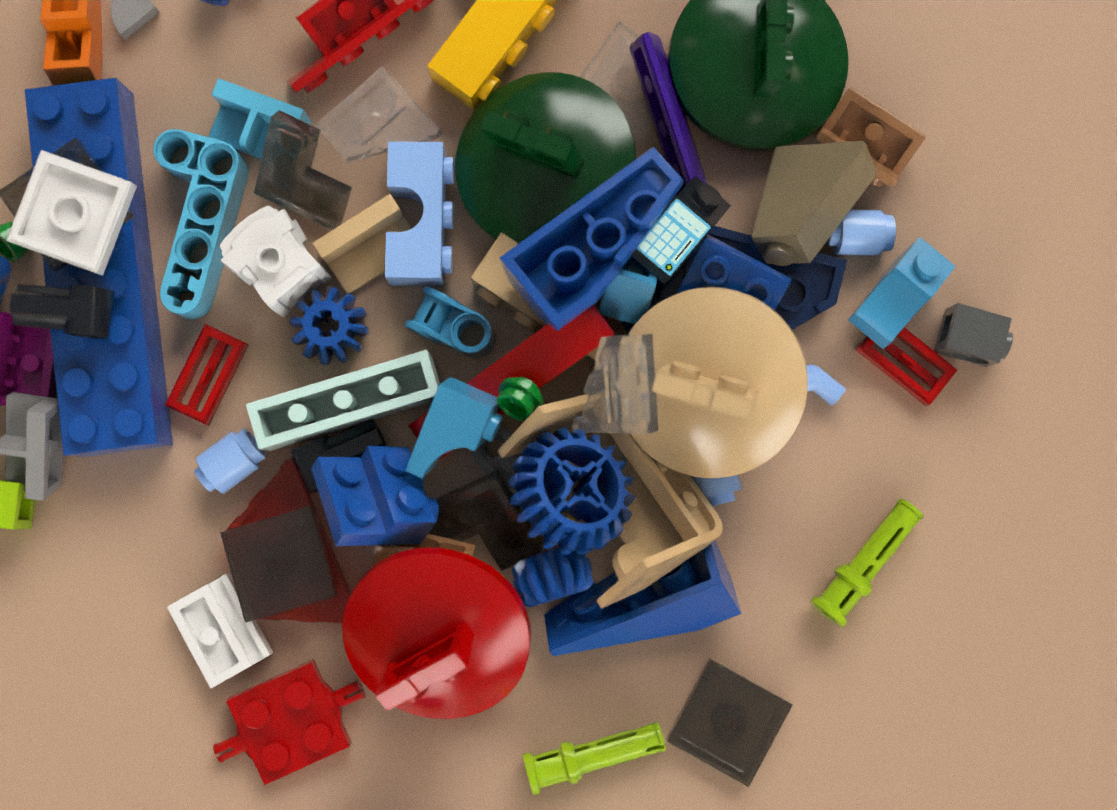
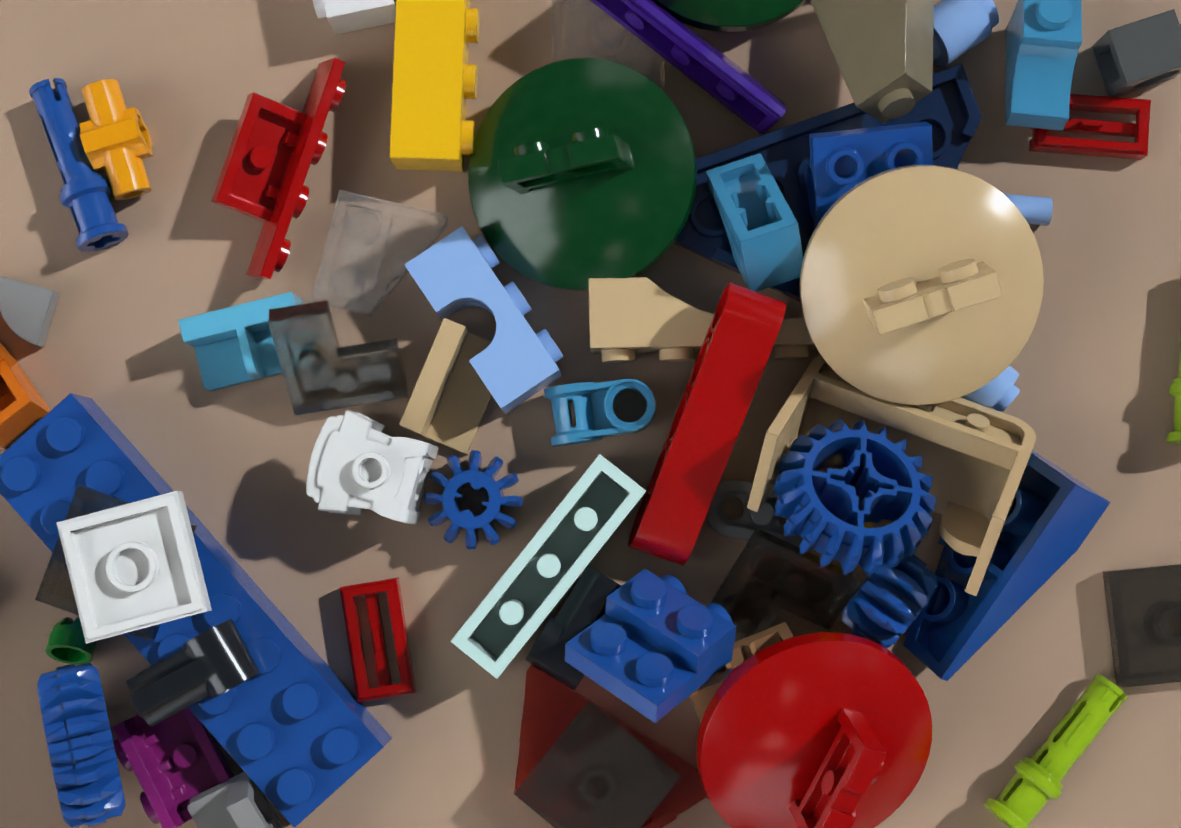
camera: 35 degrees left, 0 degrees up
(193, 228) = (258, 494): medium azure beam -> none
(229, 461) = (467, 713): light blue brick -> none
(456, 419) = (687, 505): dark azure arch -> none
(519, 397) = (736, 437): green plate -> none
(583, 249) = (698, 236): blue wedge -> none
(621, 388) = (835, 354): clear wing -> none
(680, 229) = (778, 148): slope -> none

